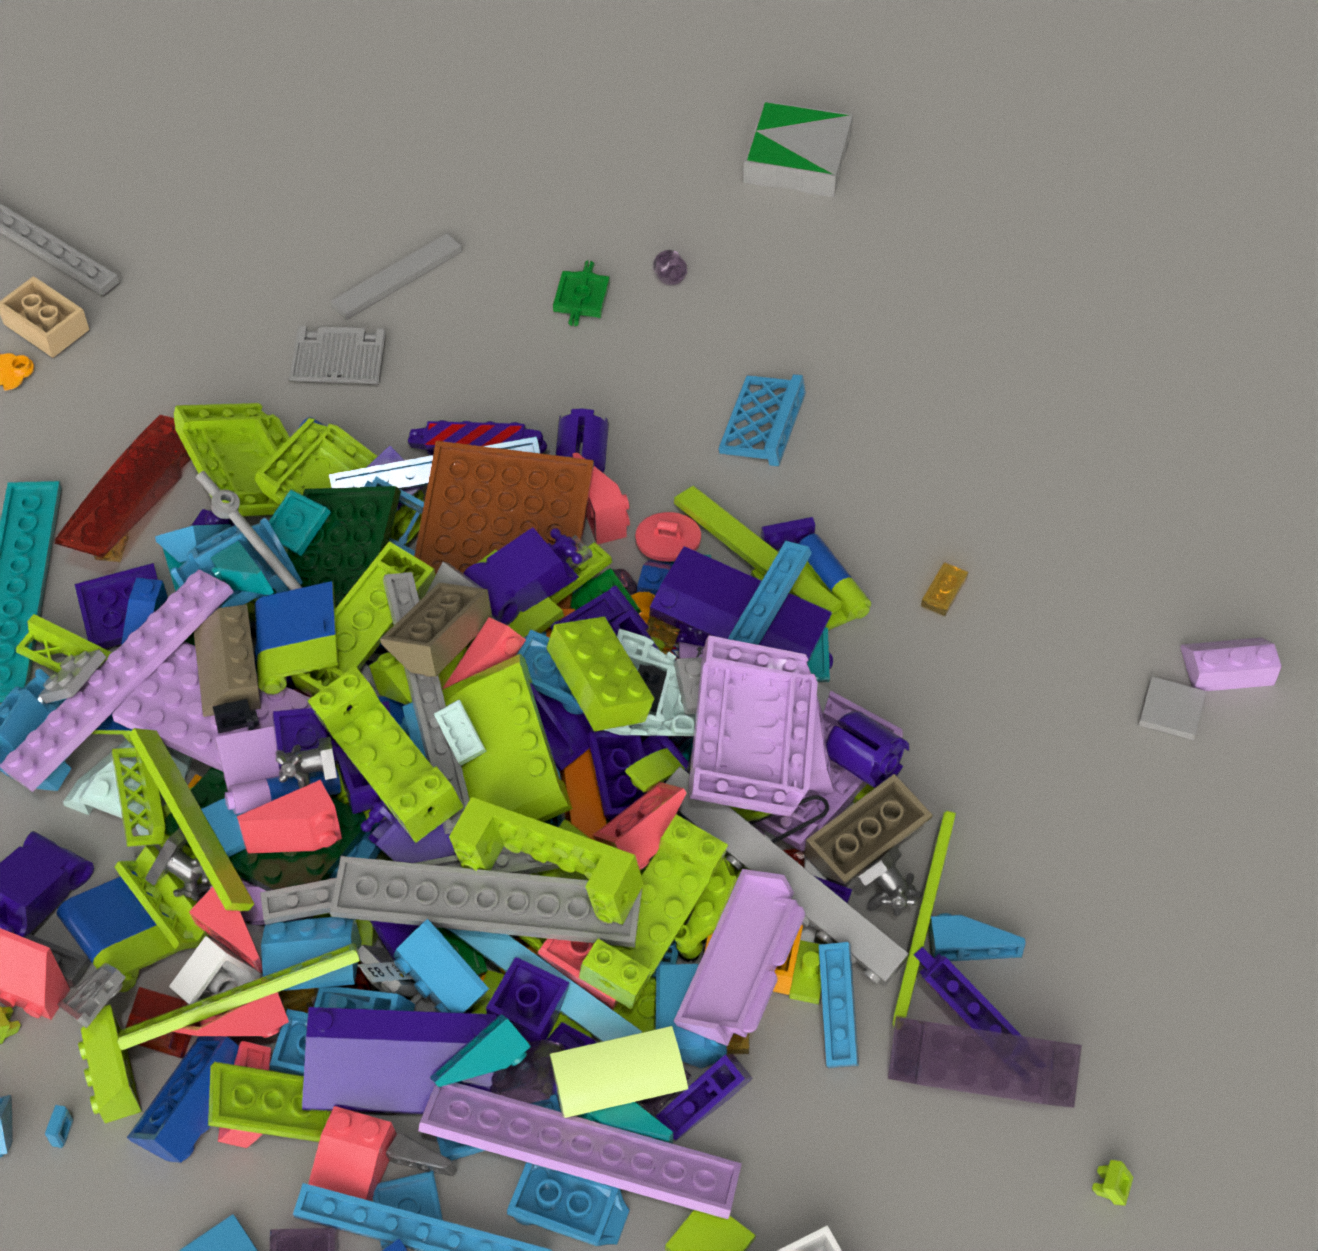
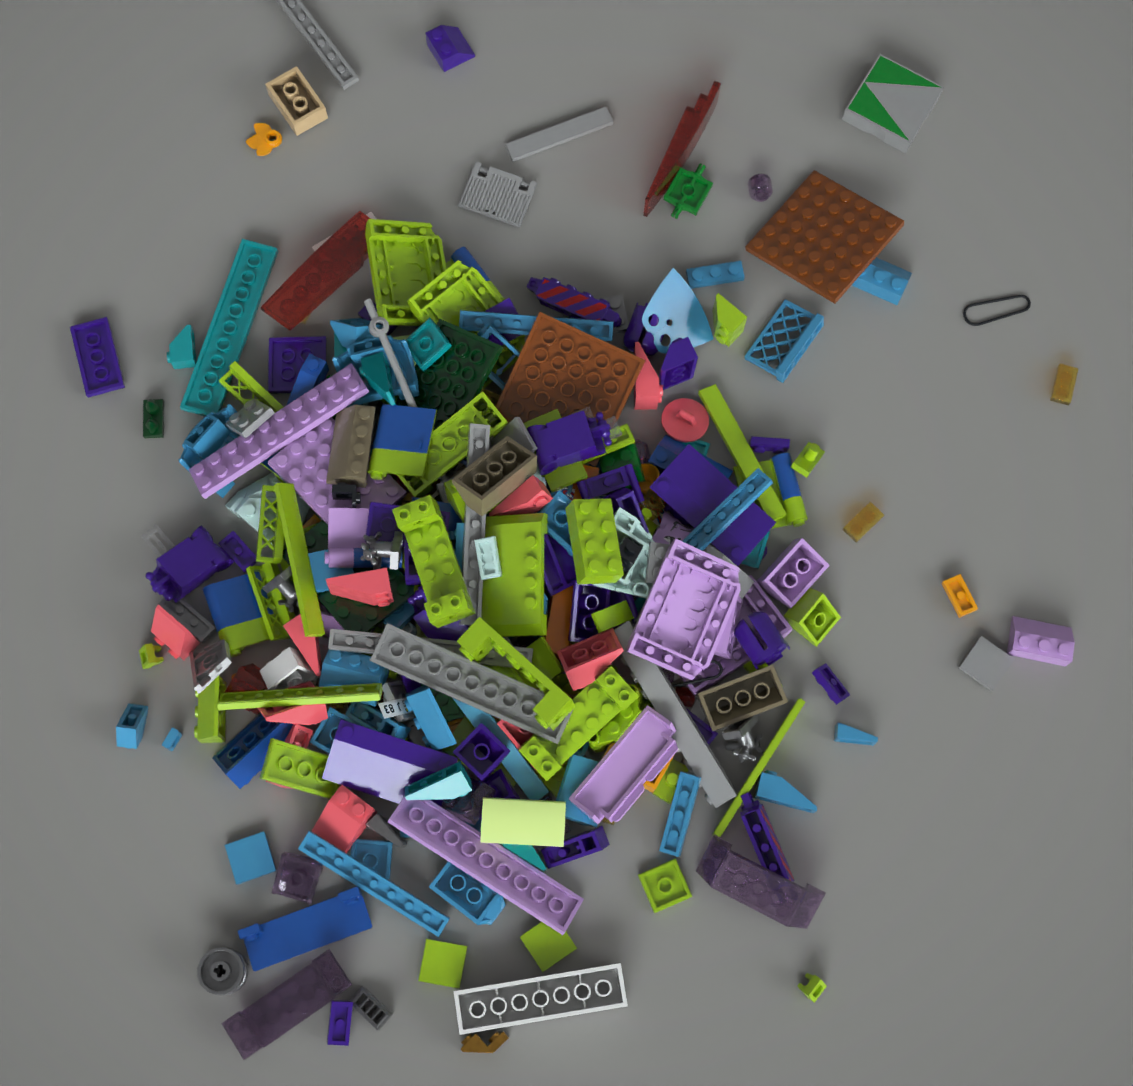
camera: 15 degrees right, 20 degrees up
(98, 851) = (238, 551): none -> dark purple plate
(224, 220) = (448, 46): none -> dark purple slope
(557, 245) = (682, 144): none -> clear red slope
(606, 400) = (679, 303): none -> dark azure piece
(639, 465) = (678, 364): none -> dark purple slope
(647, 372) = (715, 274): none -> dark azure plate
(682, 410) = (727, 321): none -> lime slope
(770, 294) = (824, 236): none -> dark orange plate
(845, 533) = (807, 459): none -> lime tile
(851, 1112) = (664, 885): none -> lime tile
(853, 326) = (883, 280): none -> dark azure slope
(877, 666) = (793, 572): none -> lavender slope
(923, 712) = (812, 616): none -> lime slope
(969, 782) = (830, 683): none -> dark purple plate
(1006, 315) = (1000, 317): none -> black piece
(1031, 841) = (851, 735): none -> dark azure slope
(1104, 638) = (959, 595): none -> light orange plate
(1129, 377) = (1064, 384): none -> clear yellow plate

